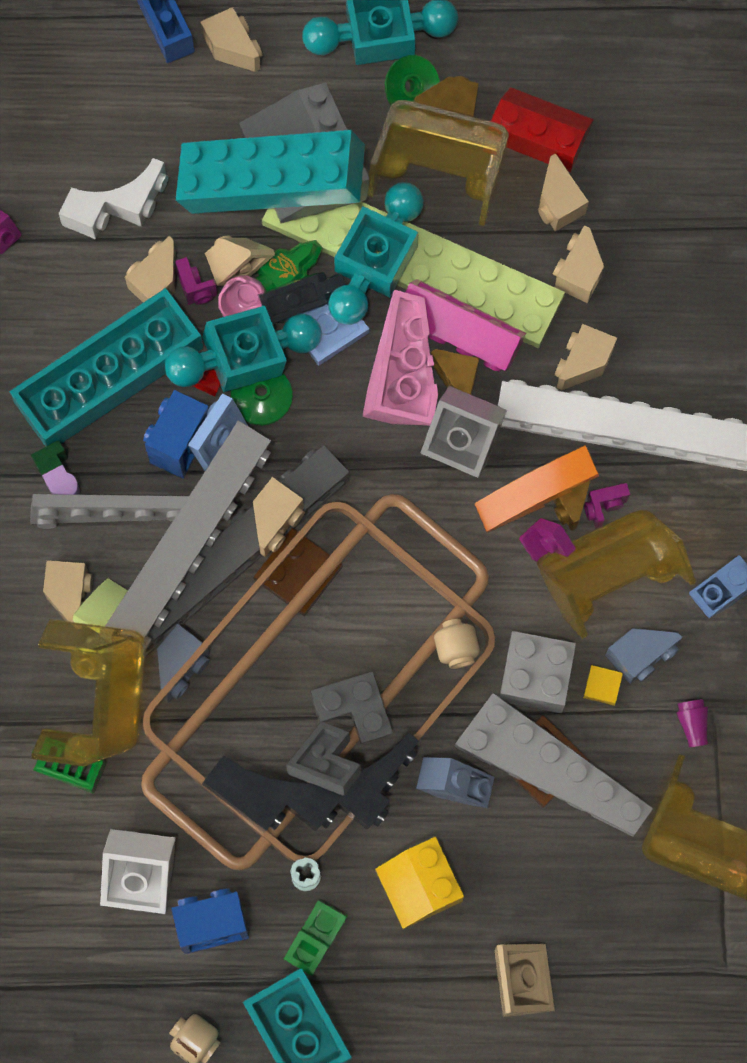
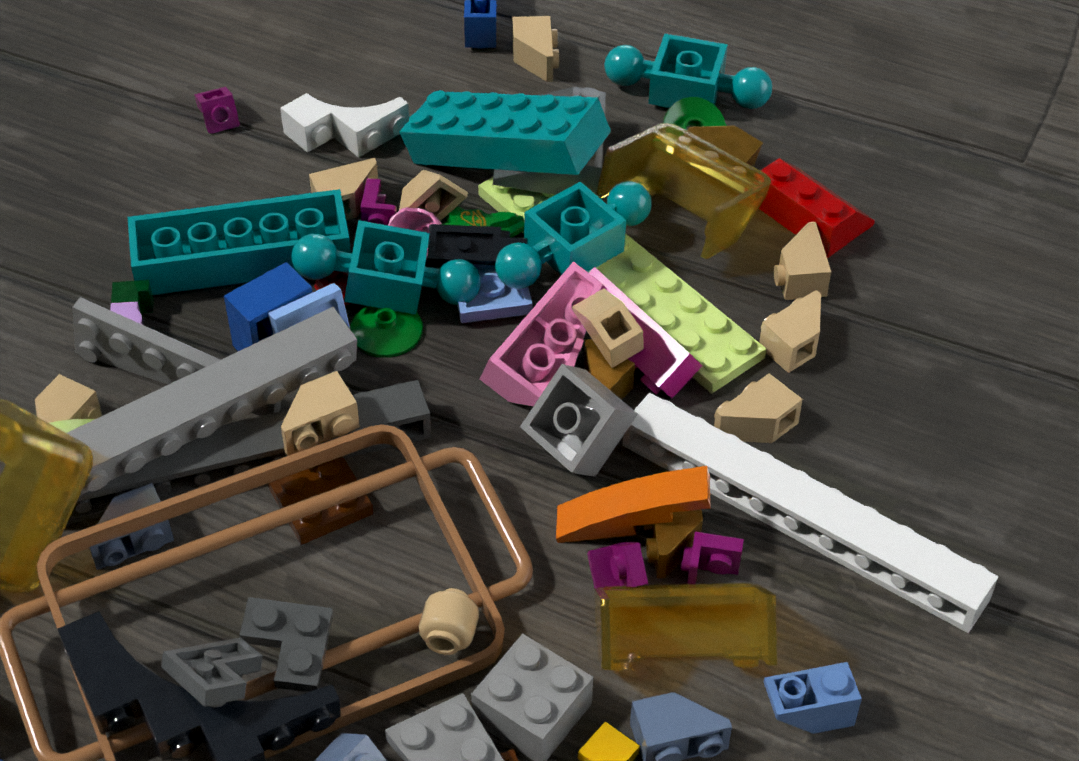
camera: 25 degrees right, 25 degrees down
(450, 339) = (610, 326): none -> tan slope

